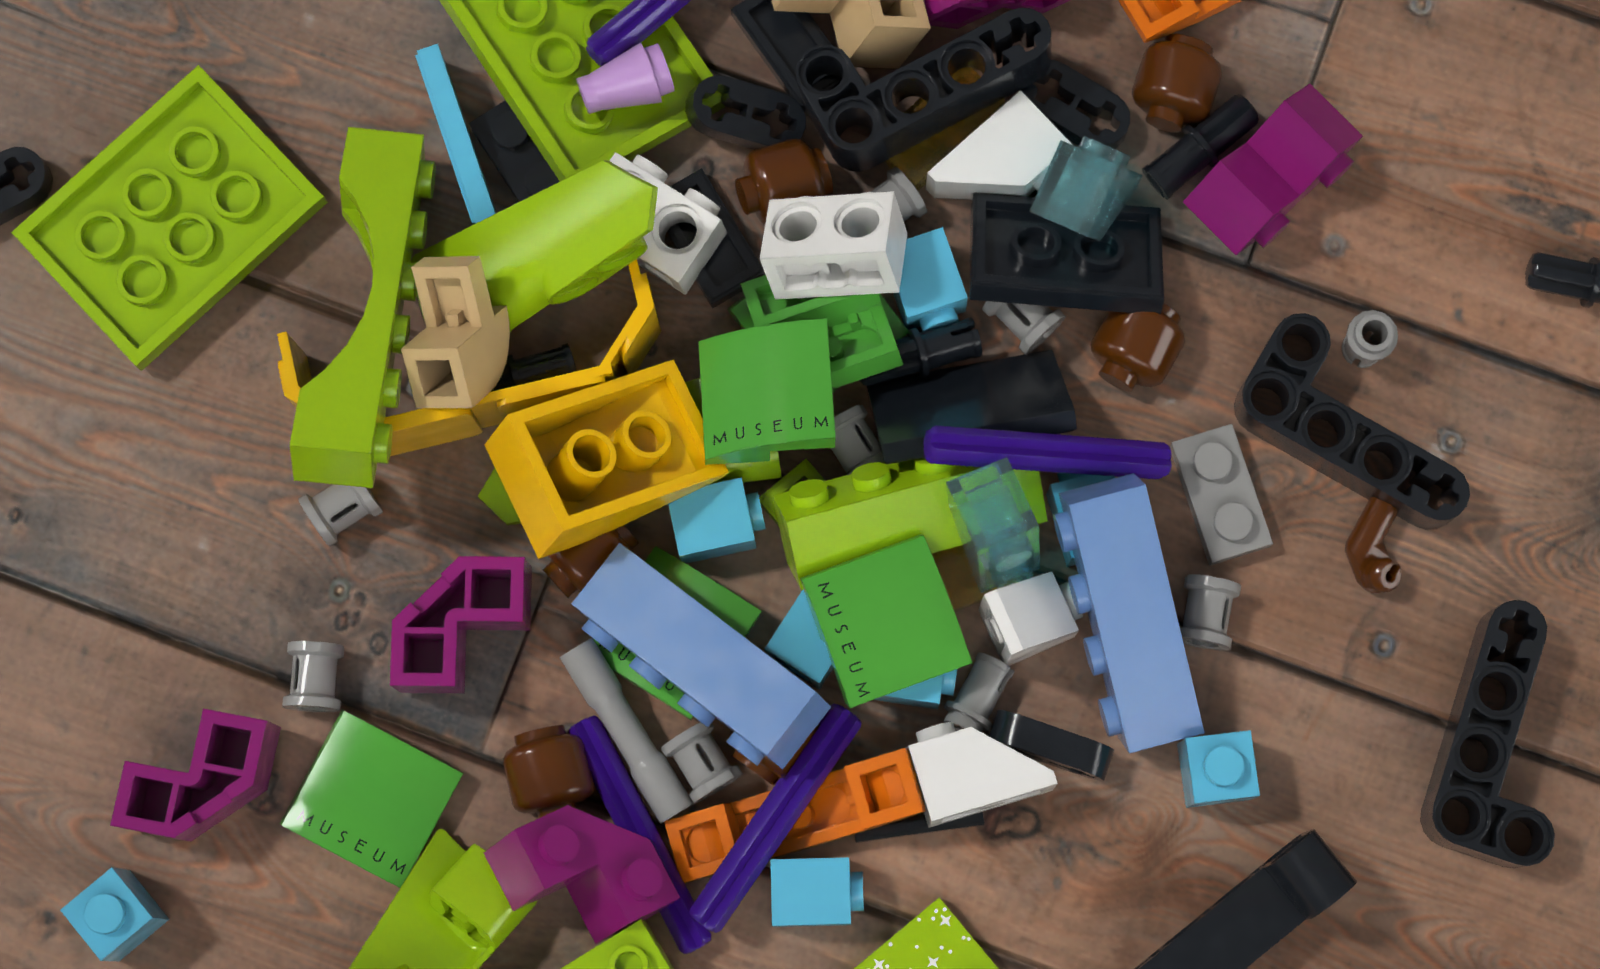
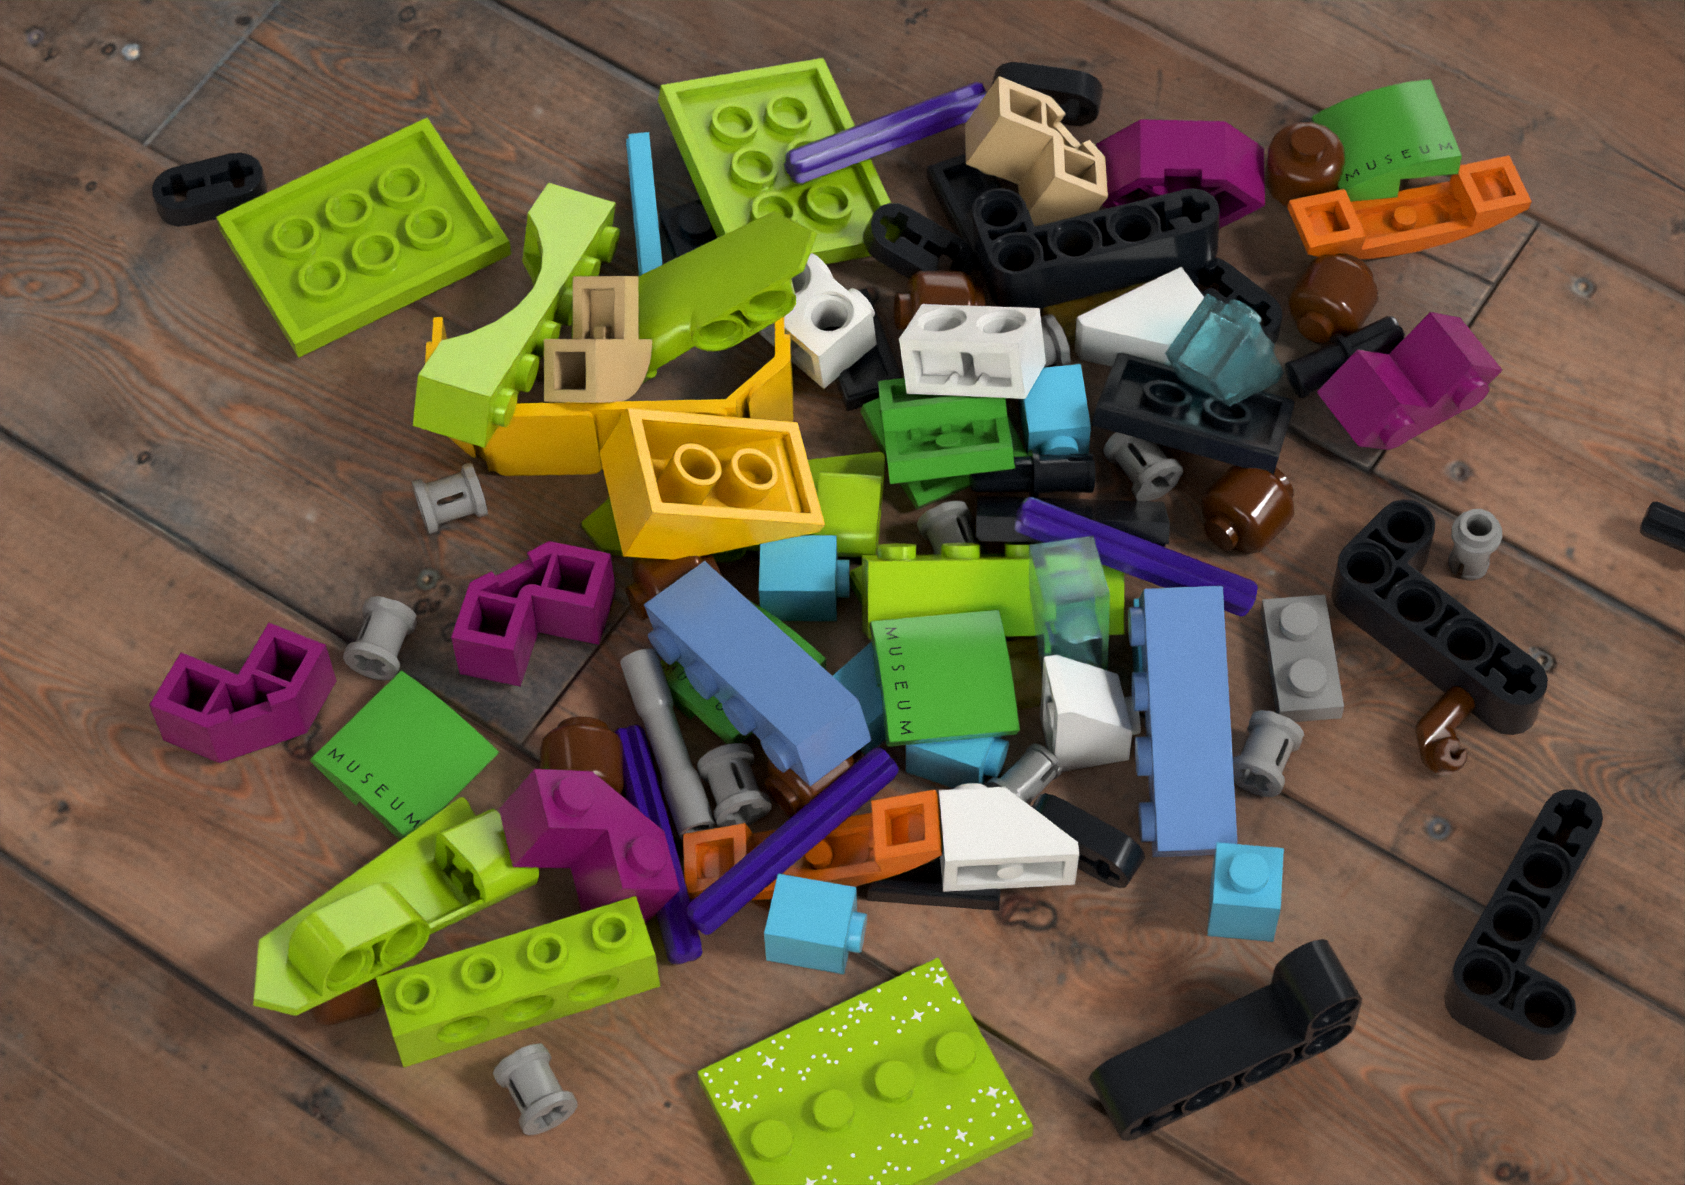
camera: 10 degrees right, 20 degrees down
(114, 914) = (128, 802): medium azure brick -> none
(628, 80) = (815, 190): lavender cone -> none
(766, 391) = (878, 457): bright green slope -> none

